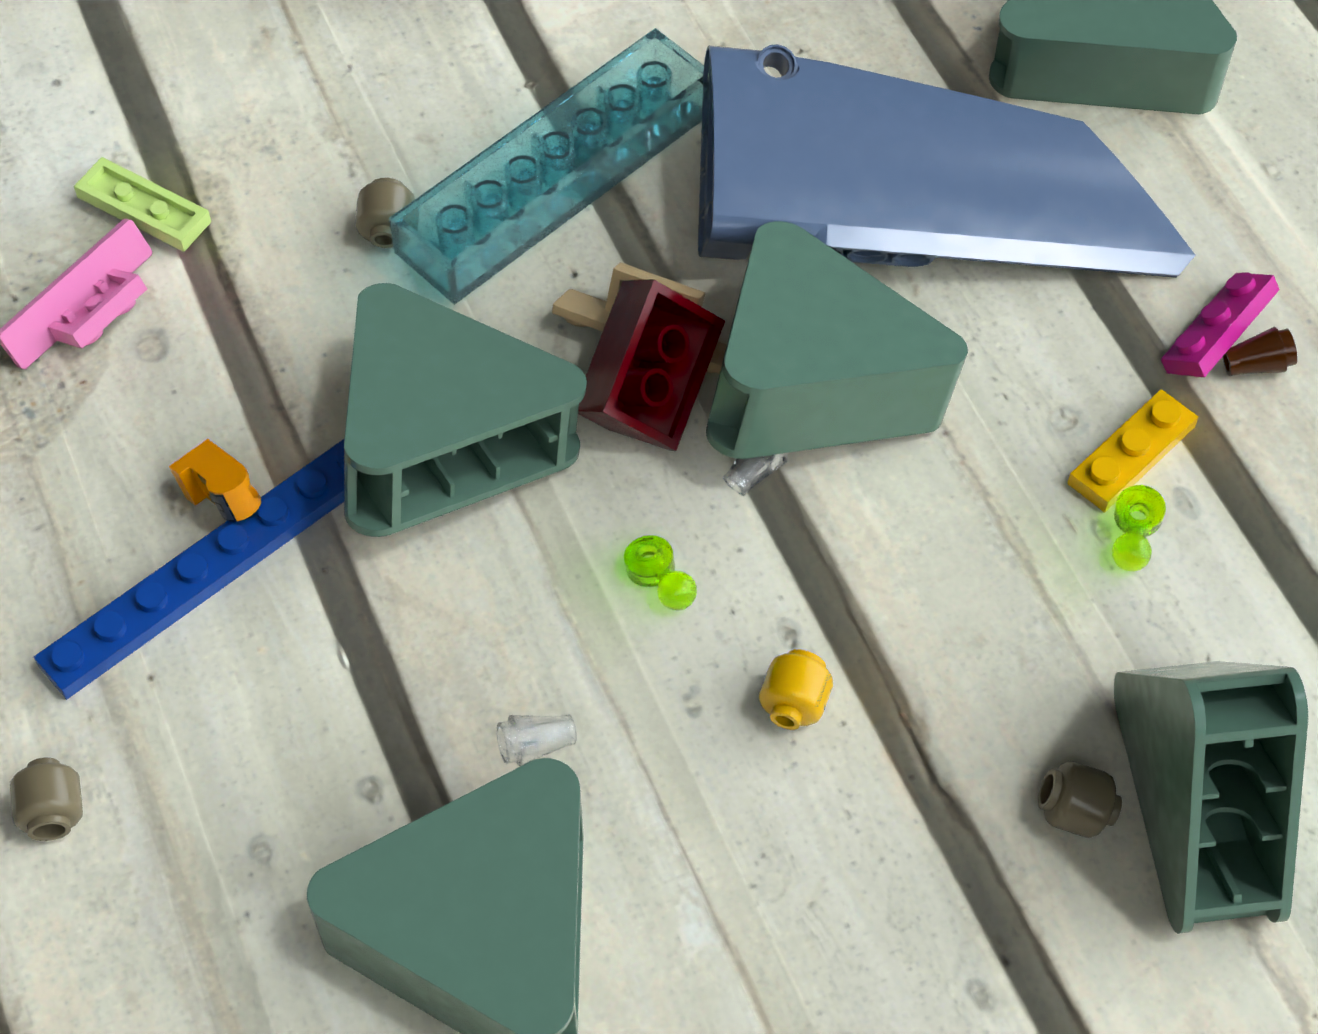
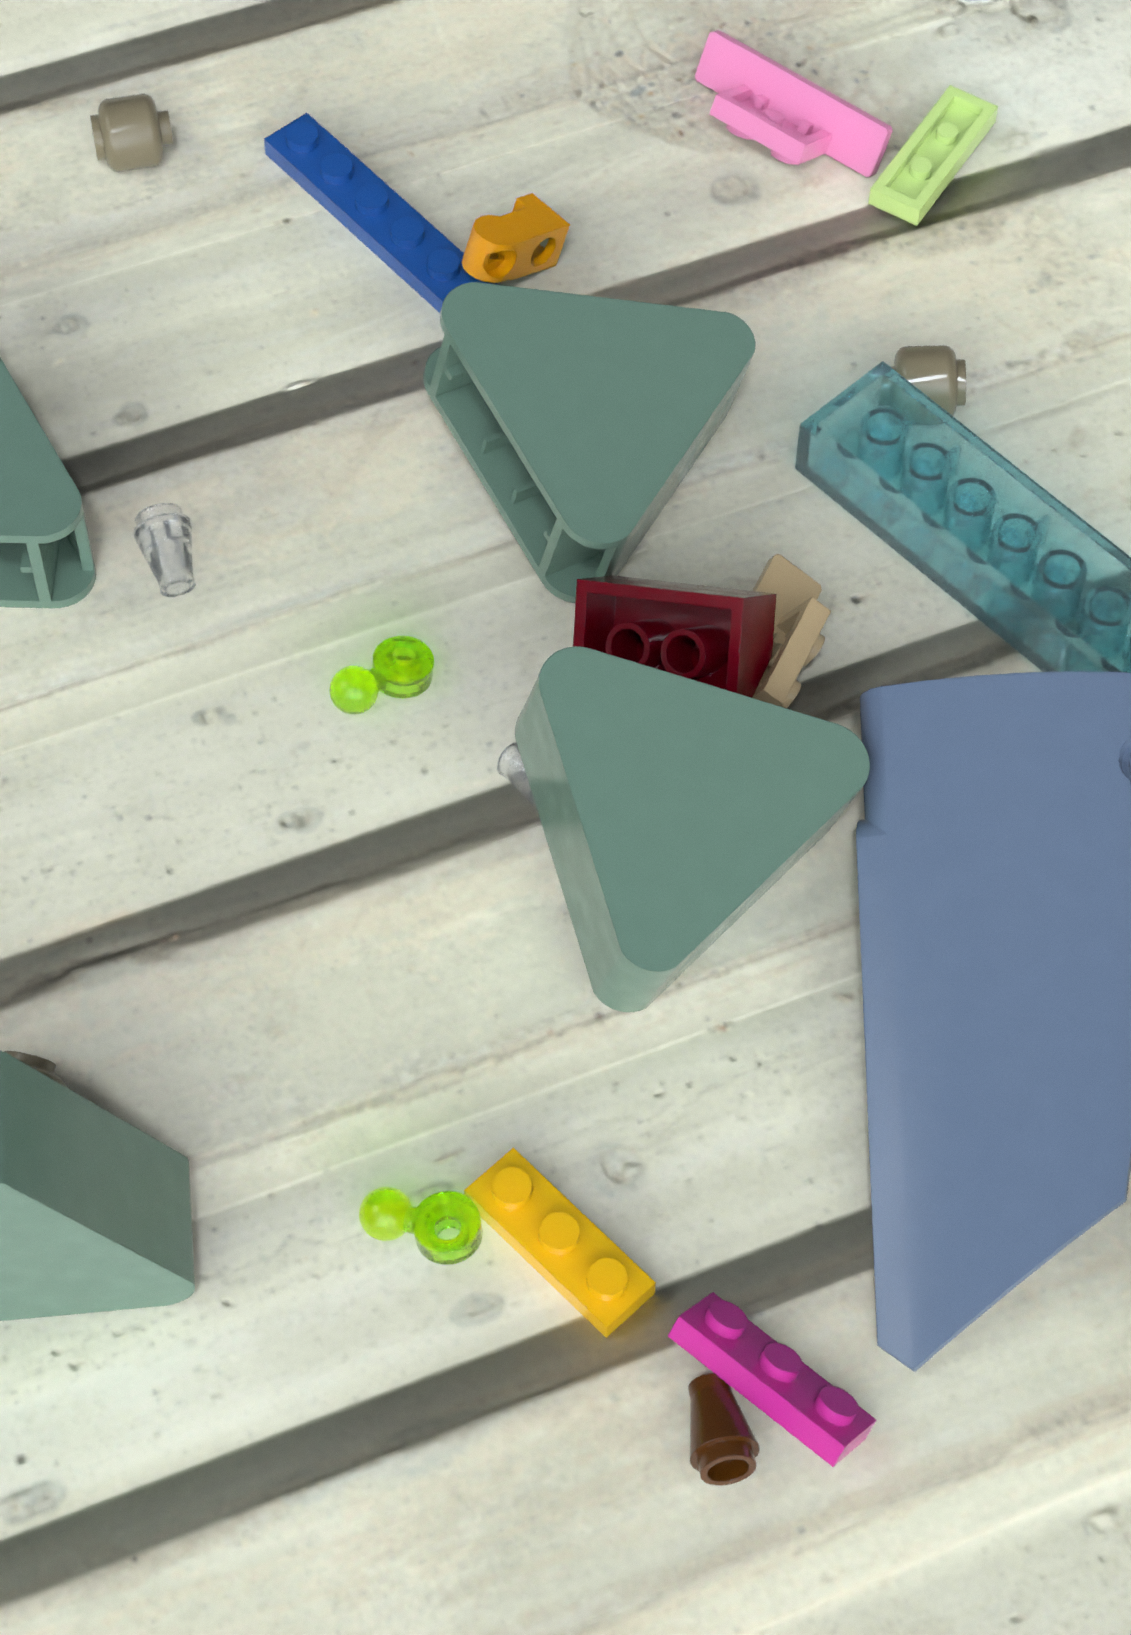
camera: 90 degrees right, 0 degrees up
(796, 689) = (198, 801): yellow head -> none

